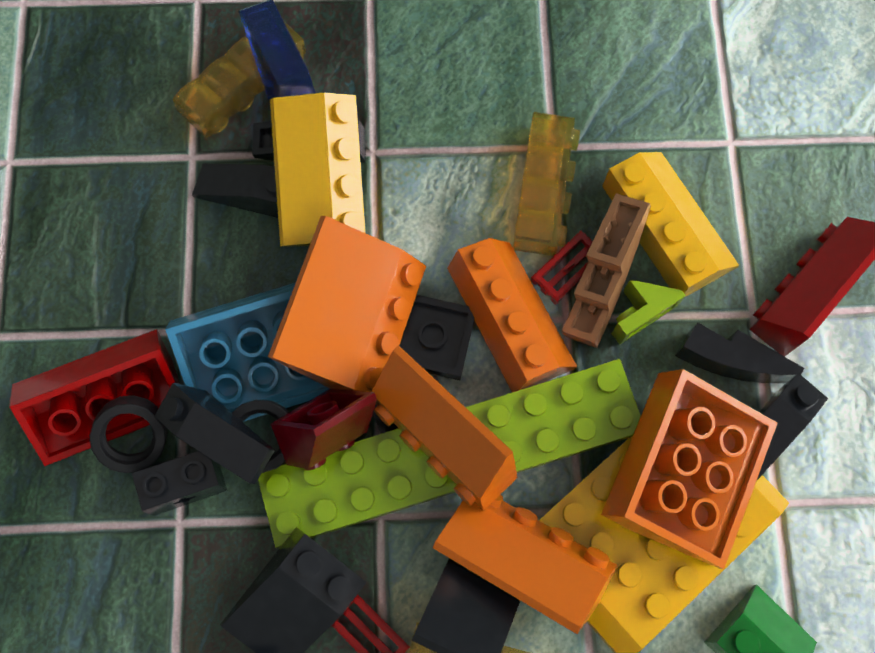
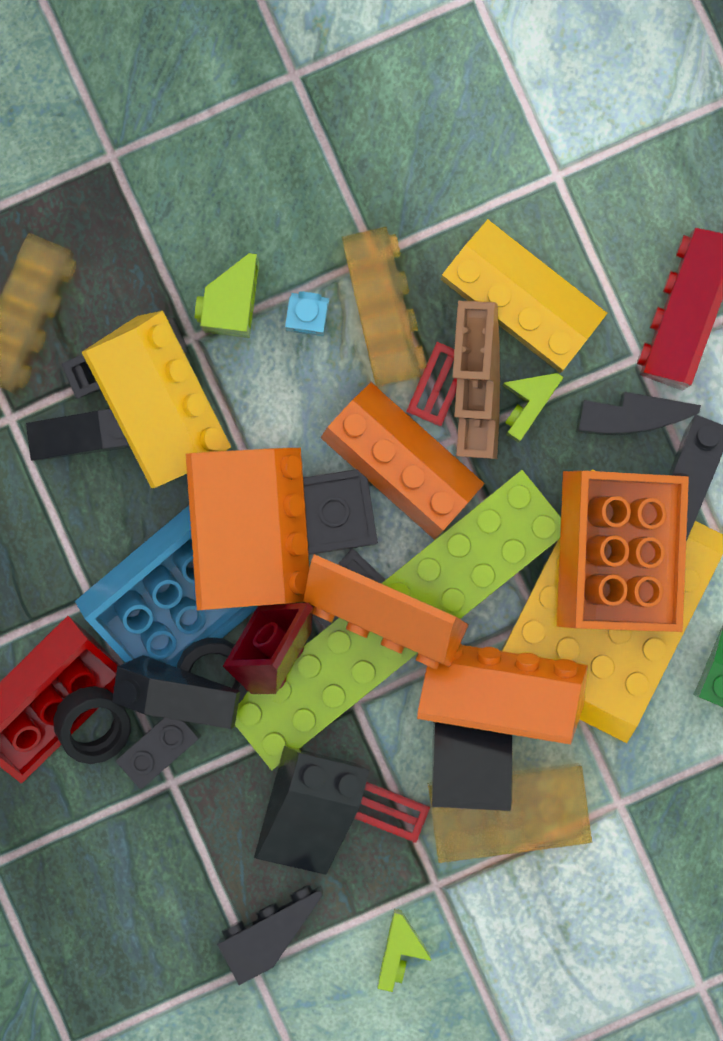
camera: 20 degrees left, 15 degrees up
(275, 52) = (62, 293): clear blue slope -> none
(418, 122) = (230, 300): none -> lime slope
(479, 158) = (307, 313): none -> medium azure brick

